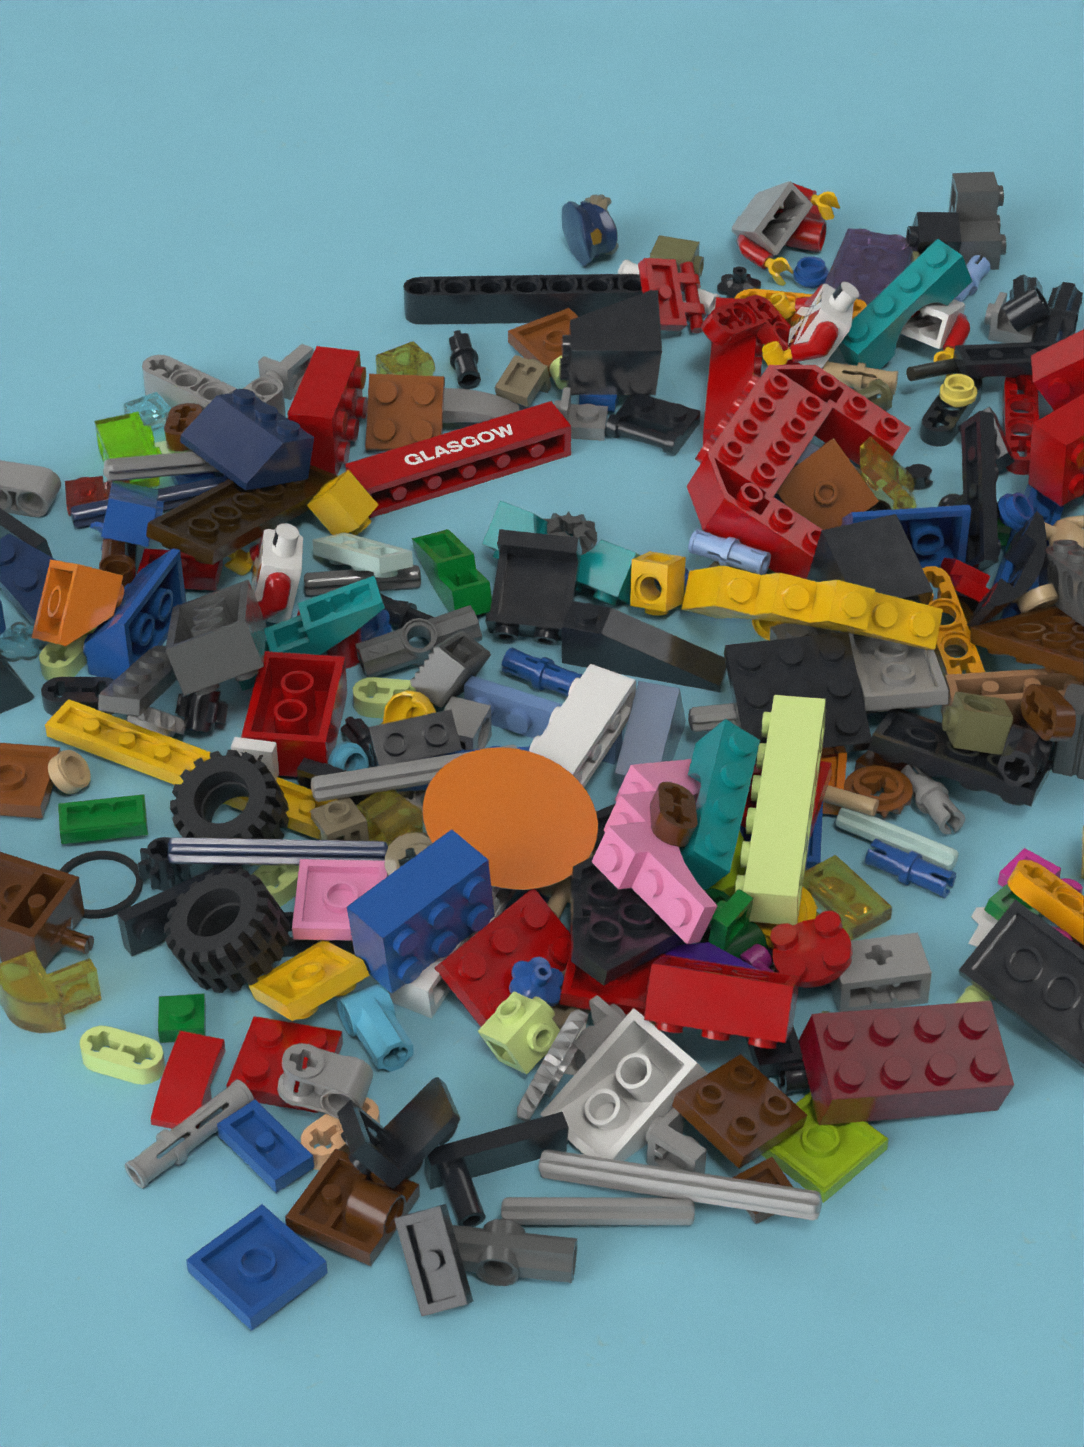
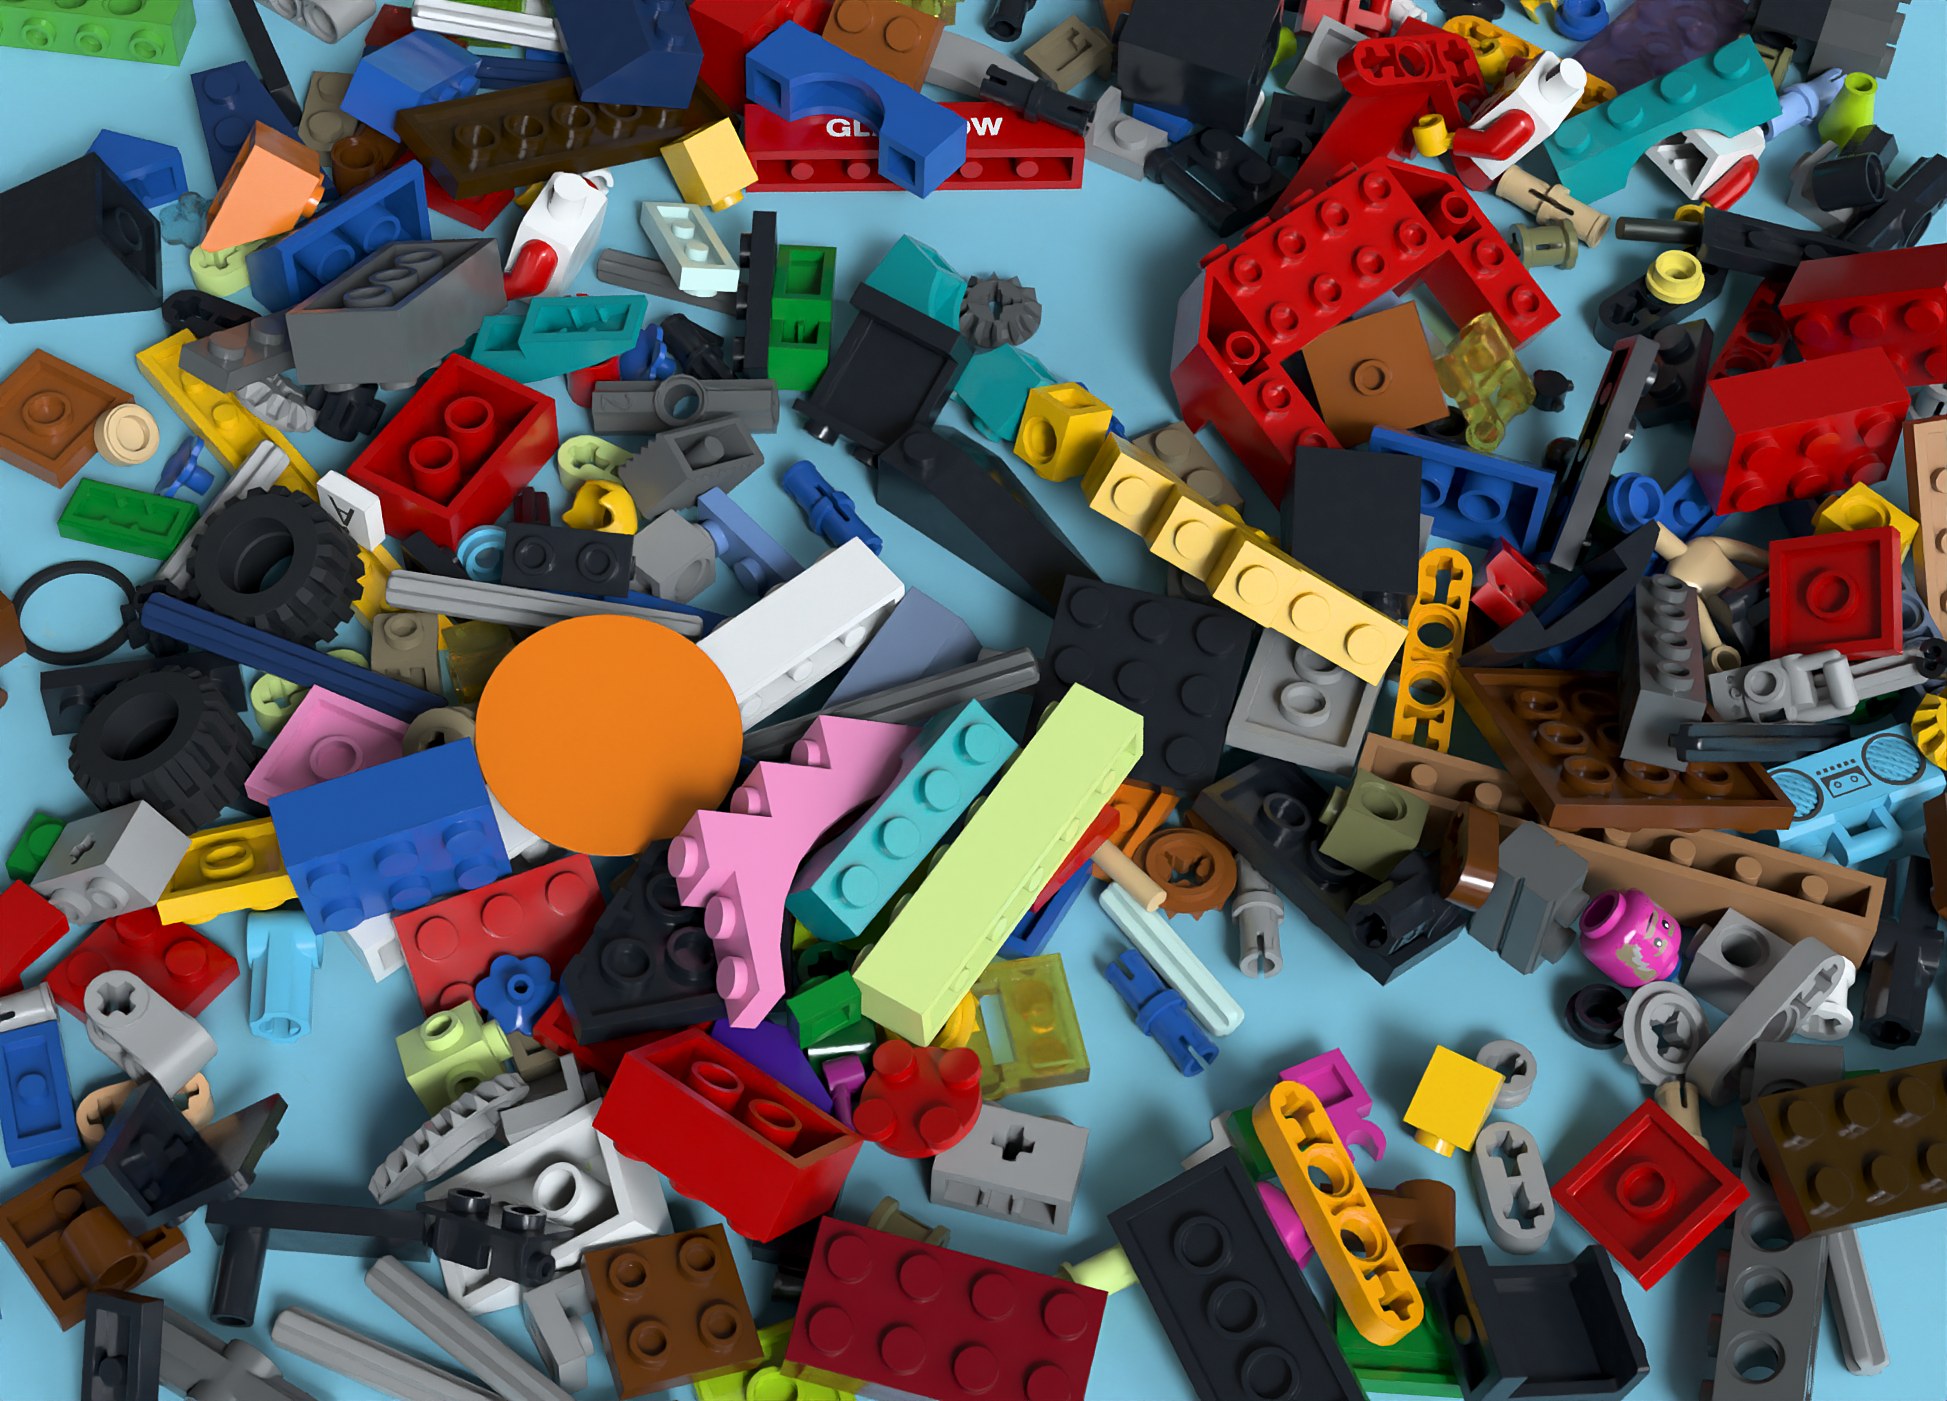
camera: 20 degrees right, 10 degrees up
(72, 546) = (322, 118): none -> dark tan plate
(119, 778) = (184, 471): none -> blue plant
(176, 761) = (258, 470): none -> light grey axle
(250, 994) = (111, 863): none -> light grey brick
(381, 432) = (807, 76): none -> blue arch
(426, 567) = (754, 300): none -> black plate
(530, 405) = (1037, 100): none -> black pin
(630, 1106) = (518, 1236): none -> black hinge
(673, 814) = (825, 825): reddish brown beam -> none
(676, 742) = (906, 702): none -> dark grey axle
(682, 380) = (1293, 127): none -> black plate
(683, 338) = (1316, 69): none -> light grey brick
(729, 552) = (1188, 422): light blue pin -> none
(998, 275) = (1849, 109): none -> lime cone
(1037, 598) = (1589, 655): tan tile -> none

